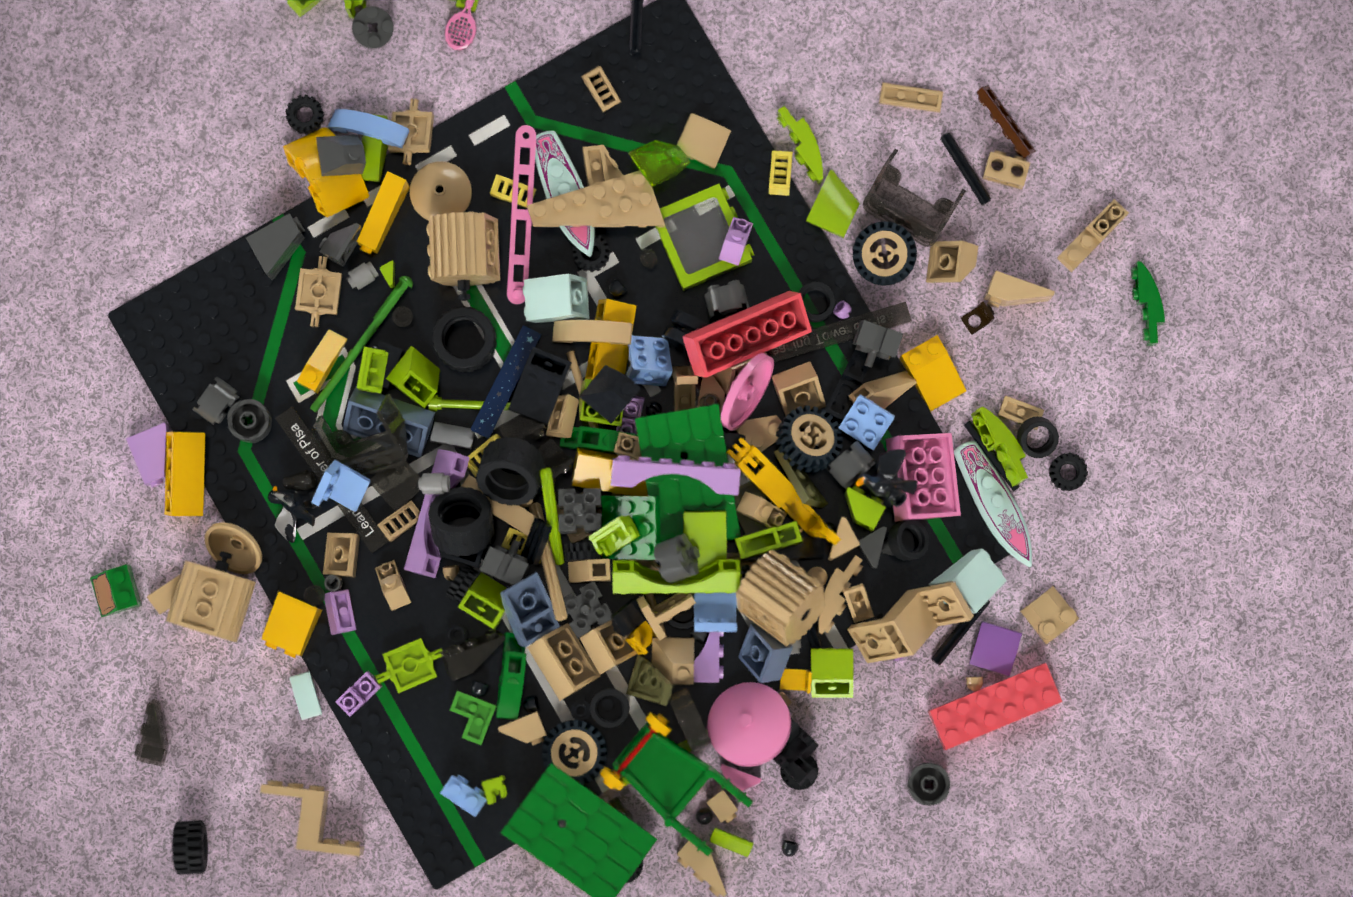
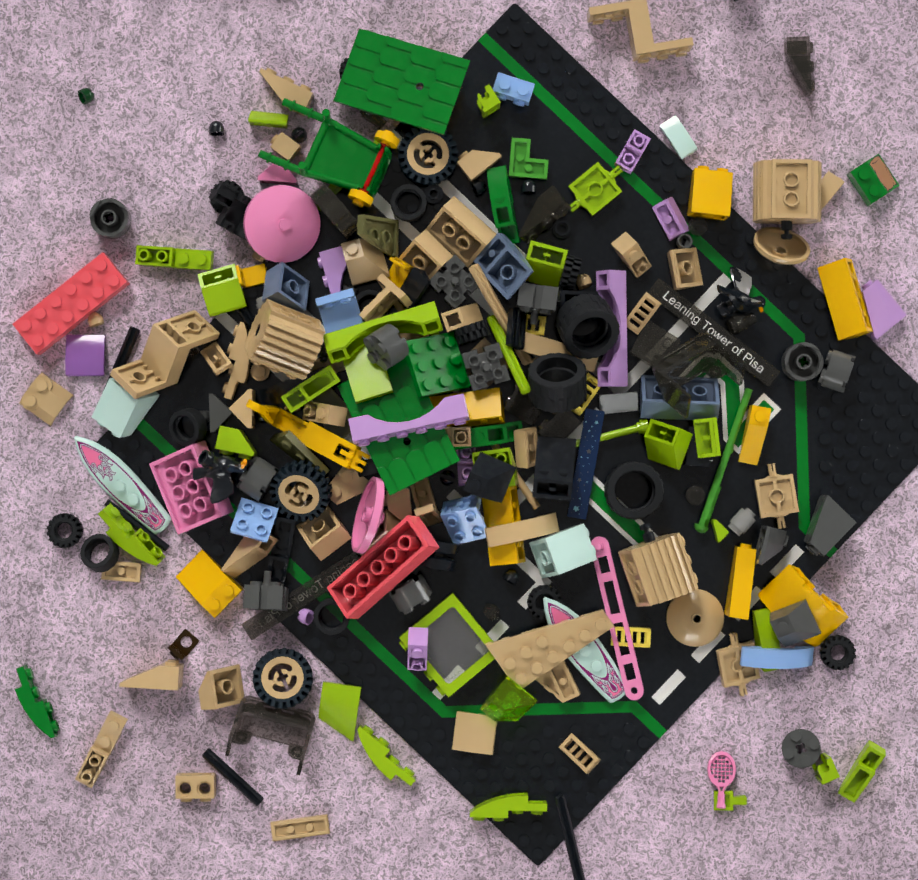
camera: 170 degrees right, 5 degrees up
(342, 486) = (702, 328): light blue bracket -> none
(434, 483) = (621, 352): light grey brick -> none
(614, 535) = (447, 352): lime hinge -> none
(698, 59) = (498, 807): none -> lime slope
(709, 395) = (403, 501): clear smoke cone -> none
(780, 186) = (394, 708): light yellow slope -> none
(872, 723) = (174, 258): none -> lime slope
(1009, 126) = (213, 833): reddish brown plate -> none

